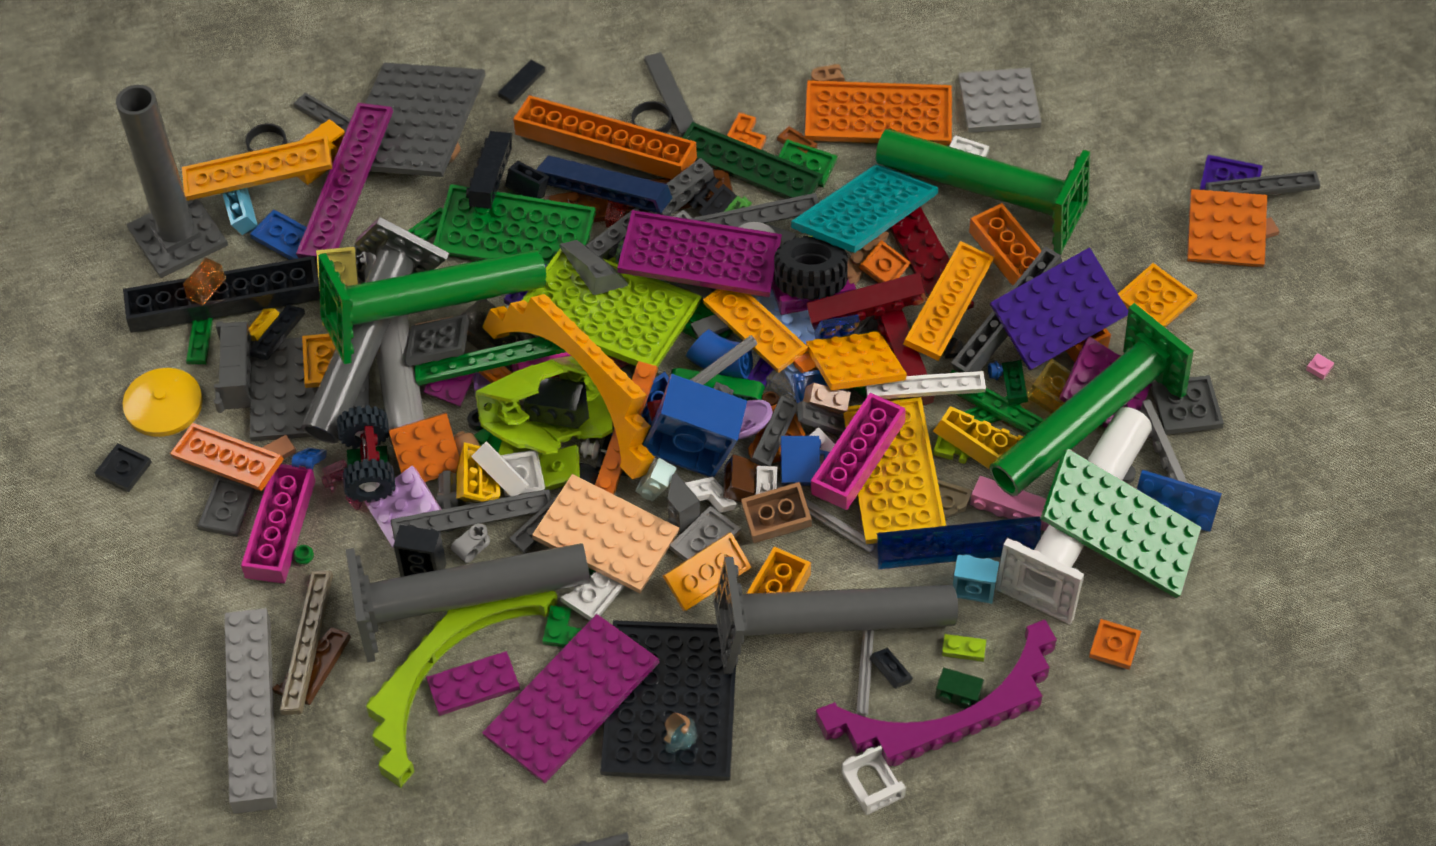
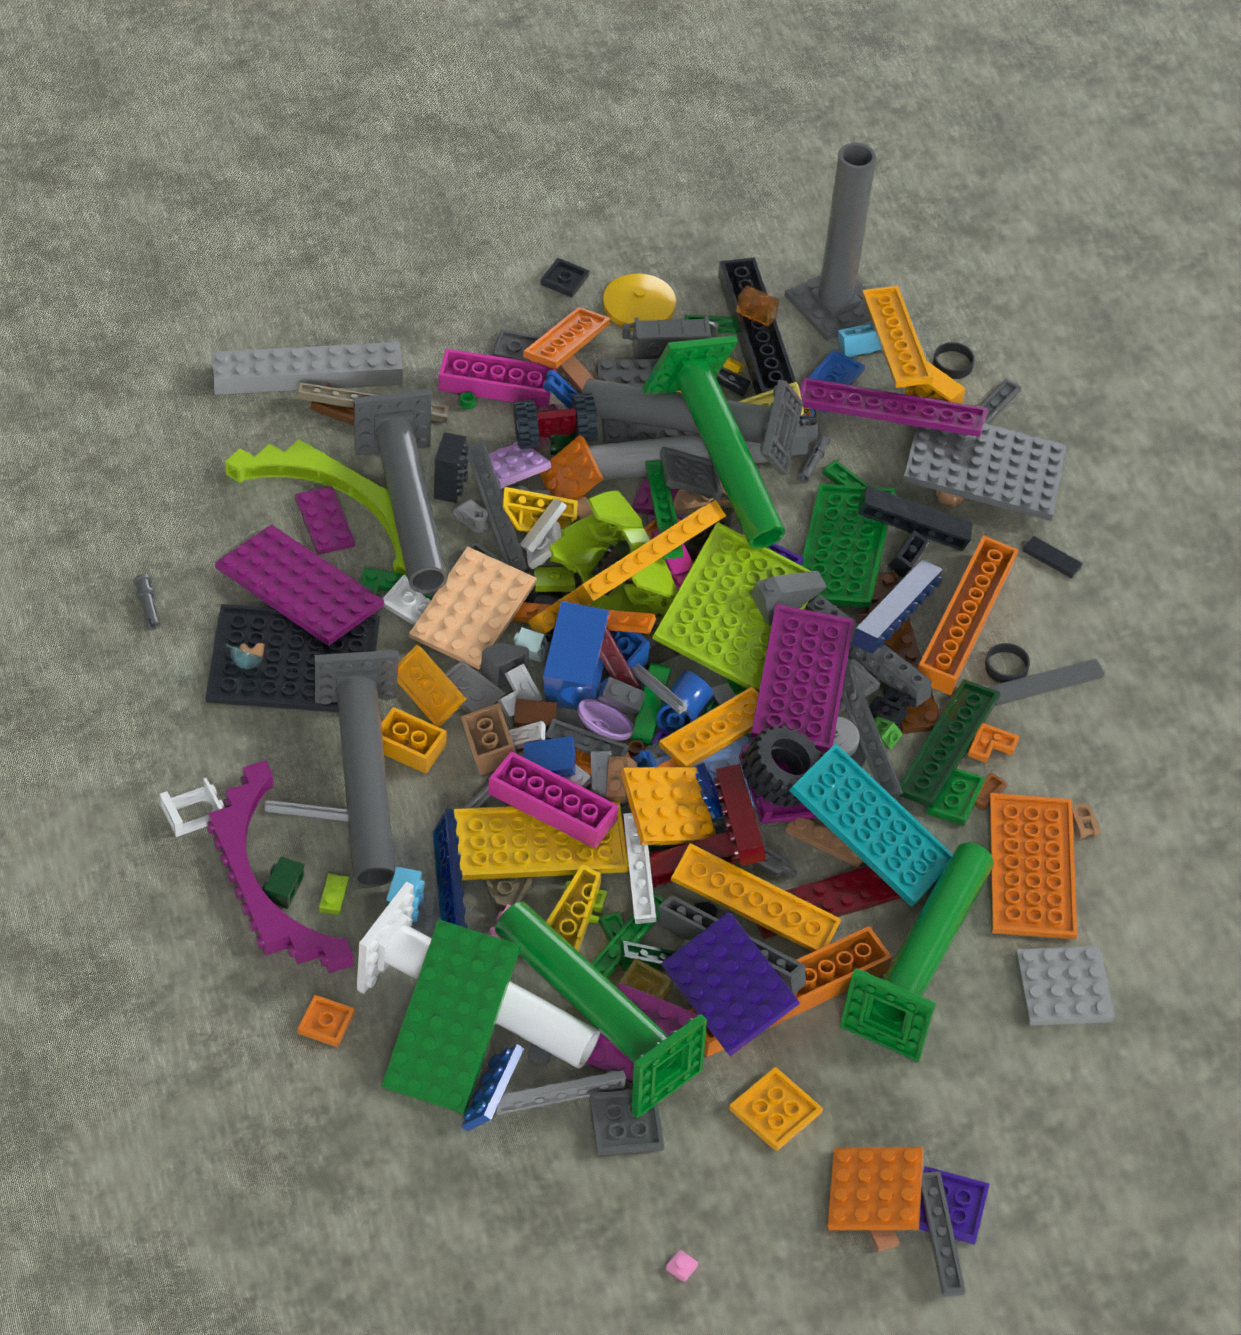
camera: 85 degrees right, 5 degrees down
(884, 263) = (813, 856): orange plate -> none
(891, 668) = (312, 829): black plate -> none
(969, 146) = (983, 946): white plate -> none
(995, 370) = (673, 944): blue plate -> none

